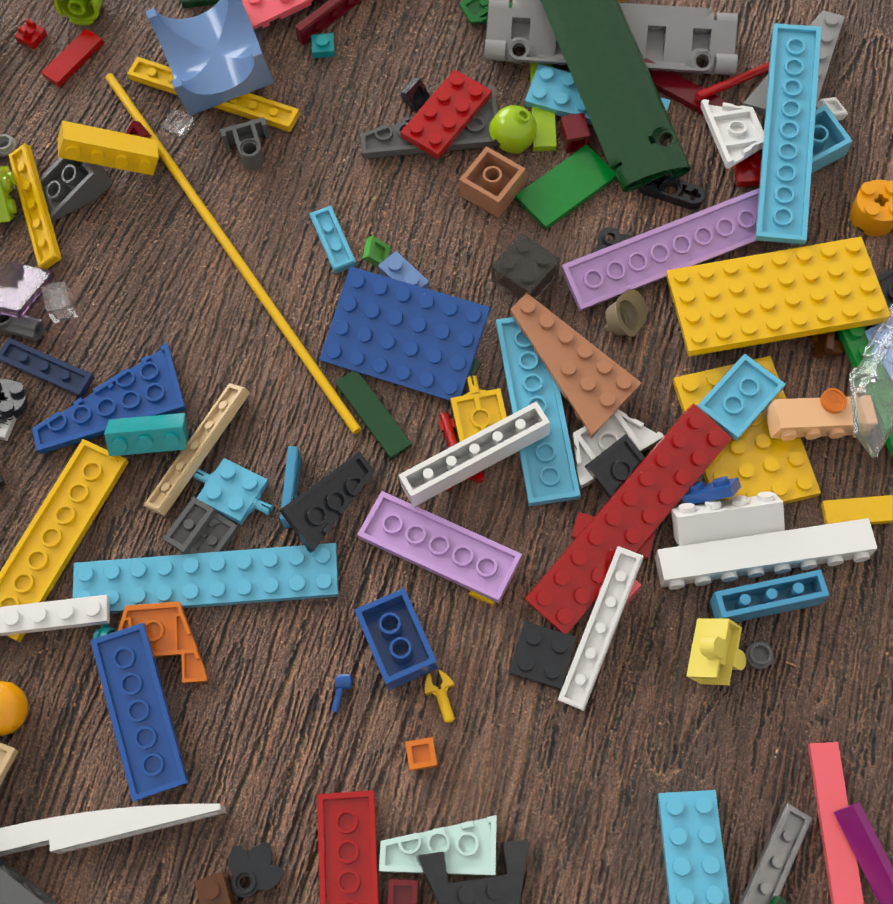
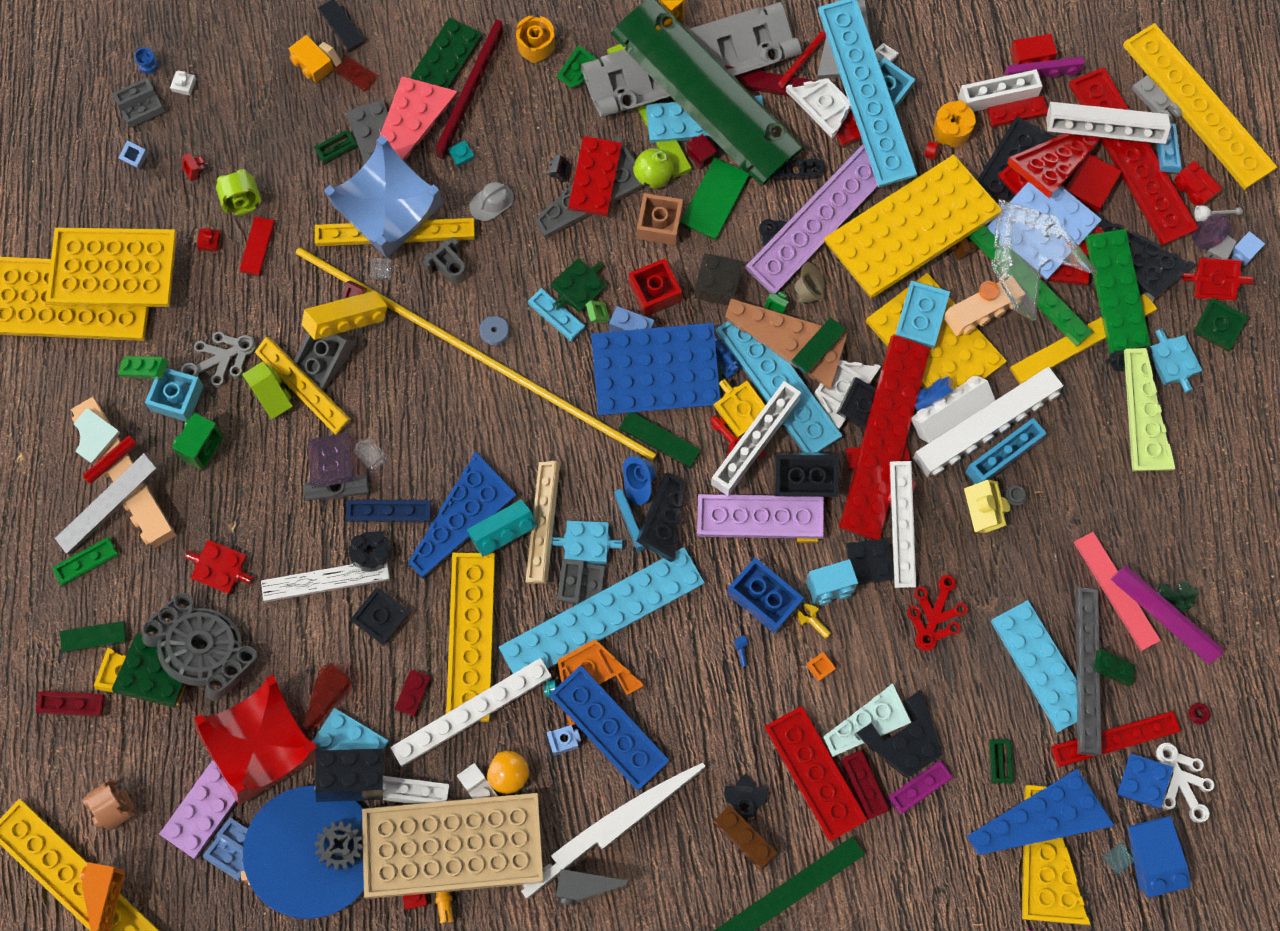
camera: 30 degrees left, 5 degrees up
(73, 697) = (559, 747): none -> light blue brick
(259, 221) = (491, 323): none -> sand blue piece
(325, 445) = (638, 478): none -> blue piece
(329, 101) = (491, 201): none -> light grey piece
(370, 216) = (578, 285): none -> dark green plate
(450, 249) = (655, 287): none -> red brick
(480, 658) = (831, 582): none -> medium azure brick
(490, 356) = (726, 359): none -> blue hinge
(513, 520) = (806, 474): none -> black brick
(578, 319) = (777, 302): none -> green tile
(589, 756) = (935, 616): none -> red plant
(599, 381) = (818, 345): none -> dark green tile
(839, 227) = (932, 150): none -> red piece

